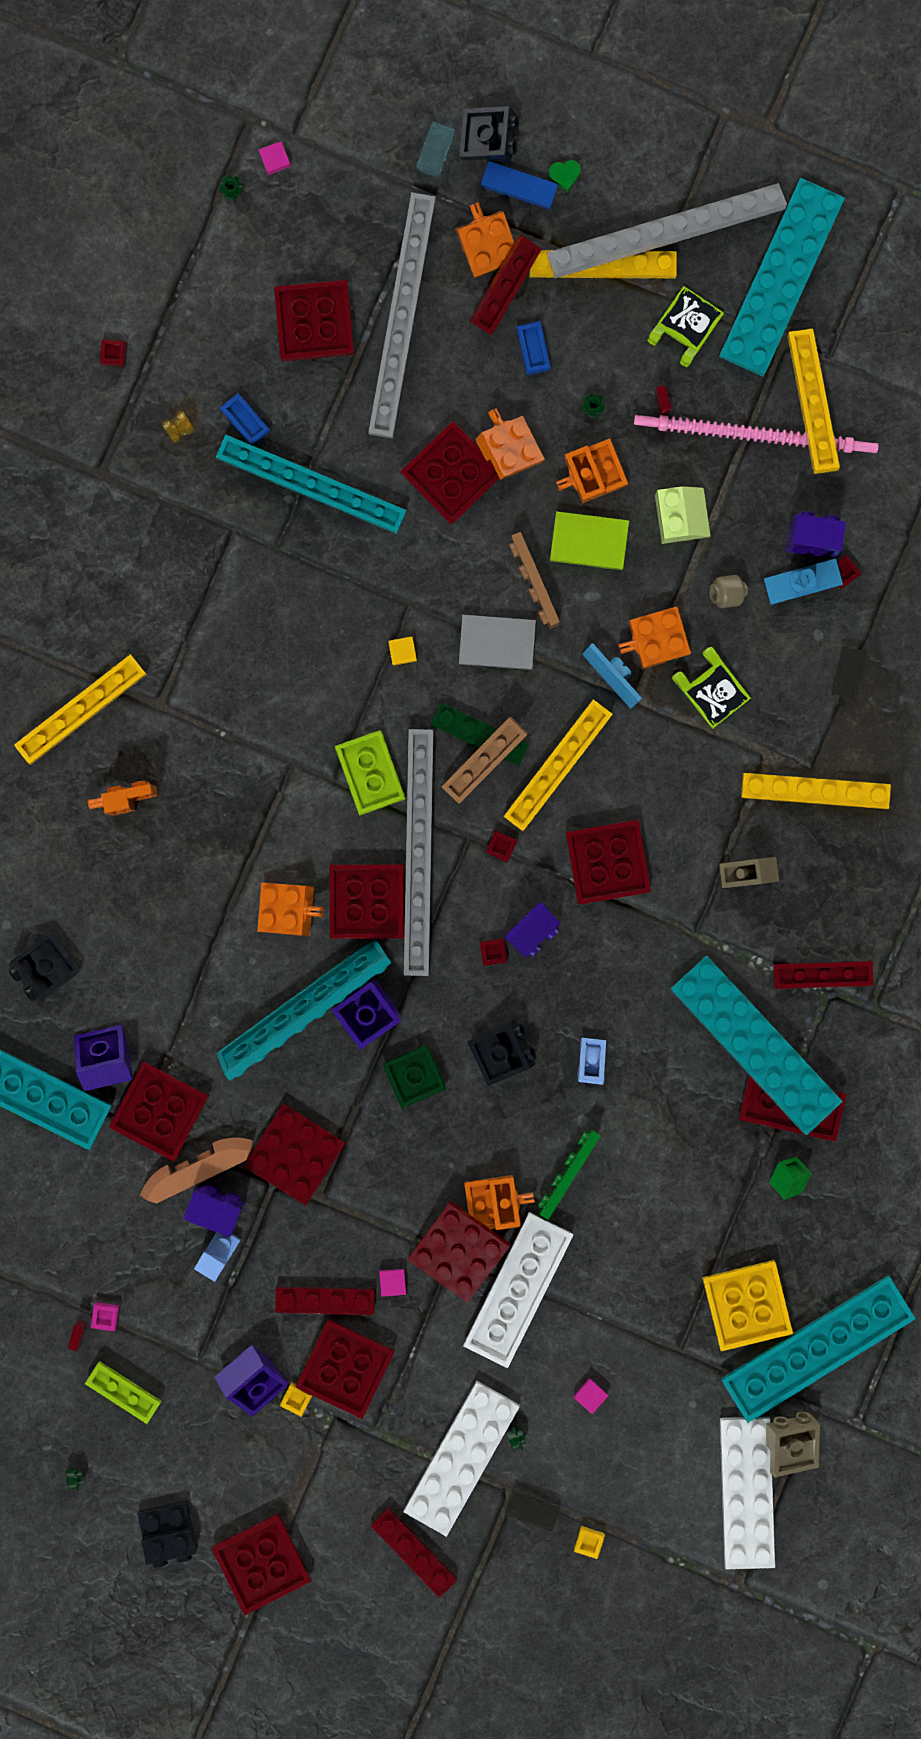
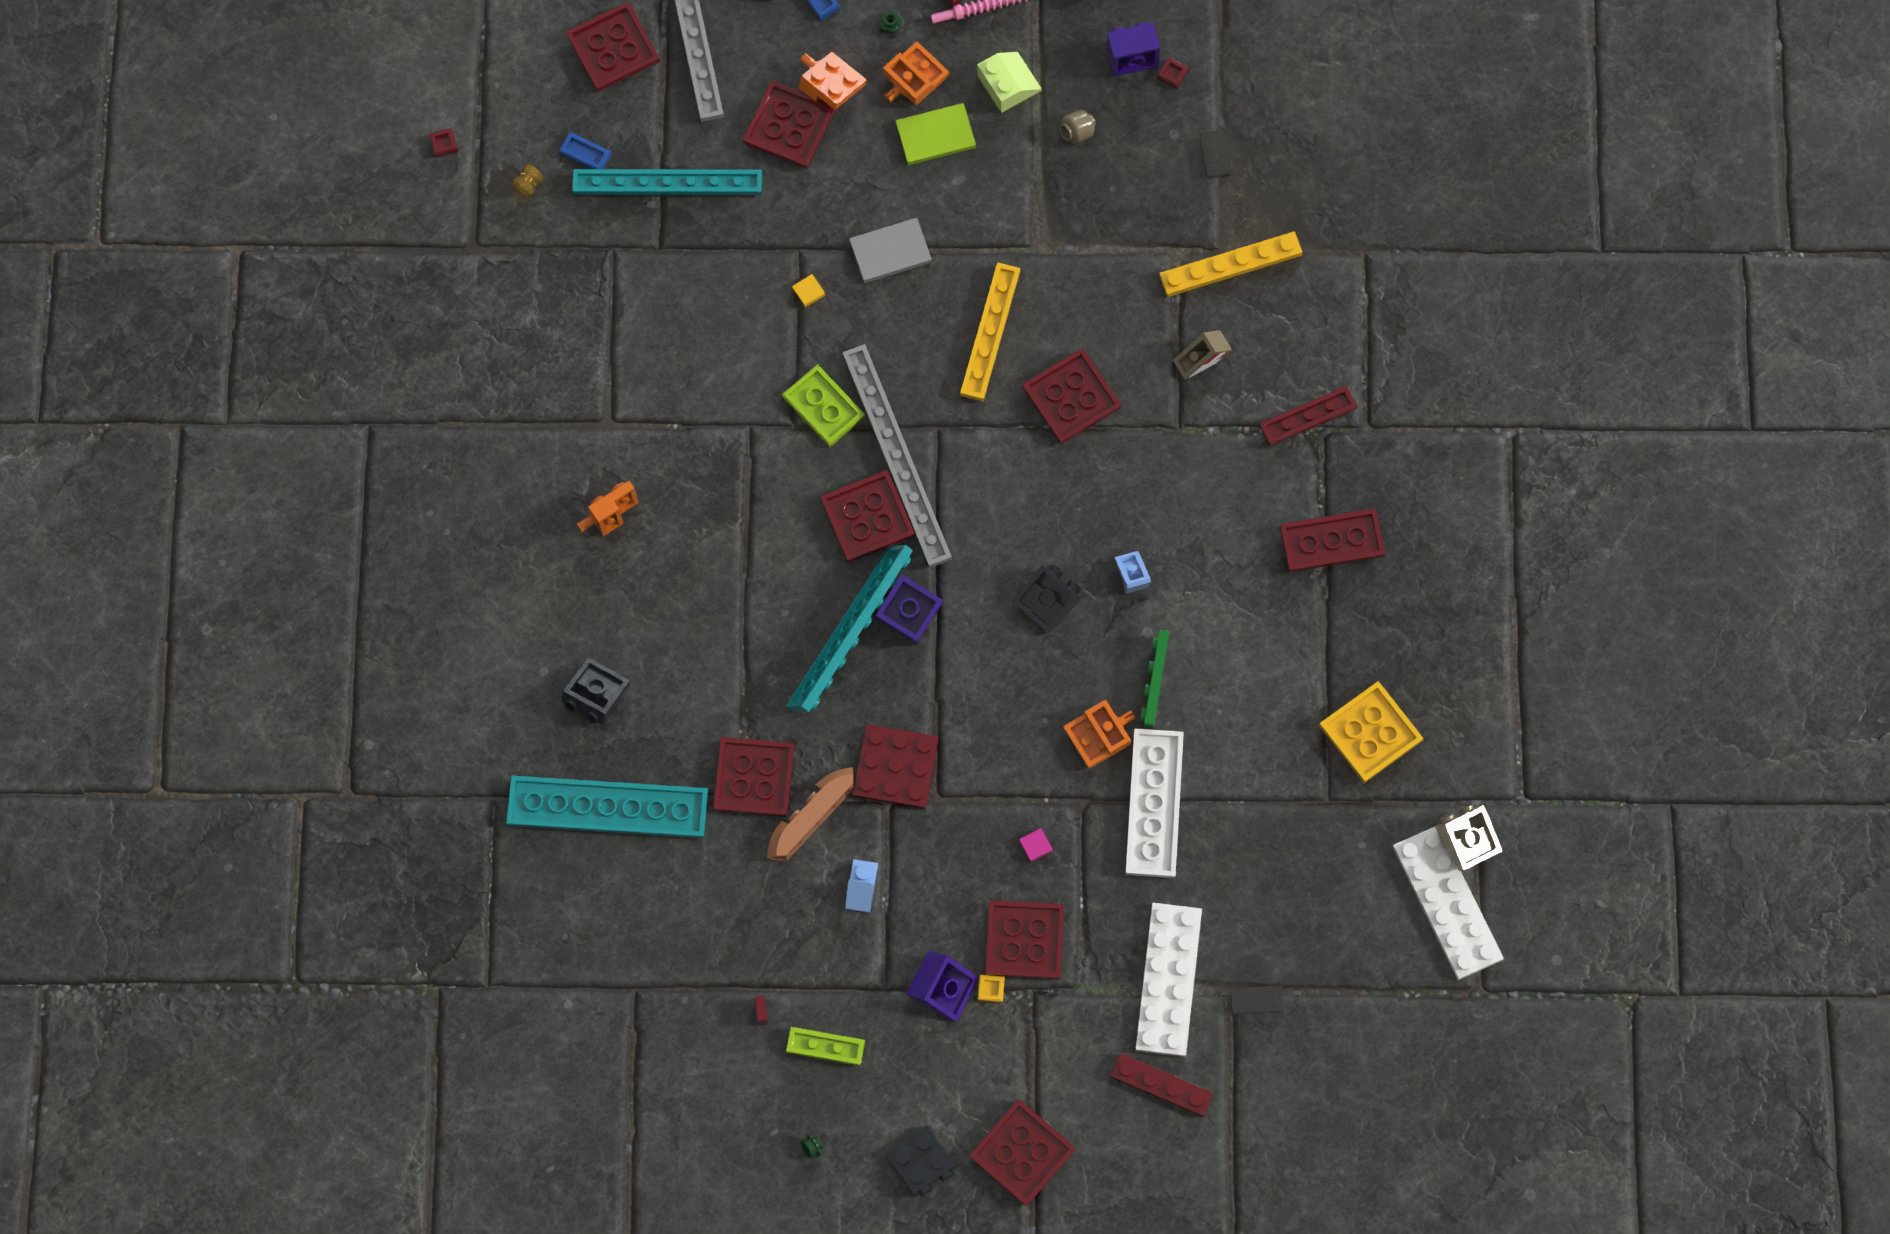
camera: 15 degrees left, 15 degrees down
(80, 709) = (537, 453): yellow plate -> none
(102, 1058) = (682, 749): dark purple slope -> none
(105, 1316) = (780, 985): dark pink tile -> none
(214, 1209) = (842, 838): dark purple brick -> none
(286, 909) = (797, 551): orange plate -> none
(324, 1300) = (979, 887): dark red plate -> none
(414, 1076) = (976, 651): dark green plate -> none
(458, 1251) = (1084, 789): dark red plate -> none
(471, 731) = (908, 334): dark green plate -> none
(484, 760) = (922, 350): medium nougat plate -> none
(493, 952) = (1002, 516): dark red tile -> none
(501, 846) = (969, 422): dark red tile -> none
(516, 1438) = (1211, 939): dark green plate -> none
(529, 571) = (908, 191): medium nougat plate -> none
(532, 930) = (1028, 478): dark purple slope -> none
(589, 1542) = (1321, 1008): yellow tile -> none
(590, 1395) = (1263, 873): dark pink tile -> none
(614, 674) = (1006, 234): dark azure piece -> none
(657, 638) = (1031, 190): orange plate -> none
(715, 692) = (1103, 215): flag -> none
(756, 1045) = (1275, 499): teal plate -> none
(790, 1178) = (1359, 603): green panel -> none
(803, 581) = (1140, 94): dark azure piece -> none
(818, 1348) = (1452, 745): teal plate -> none

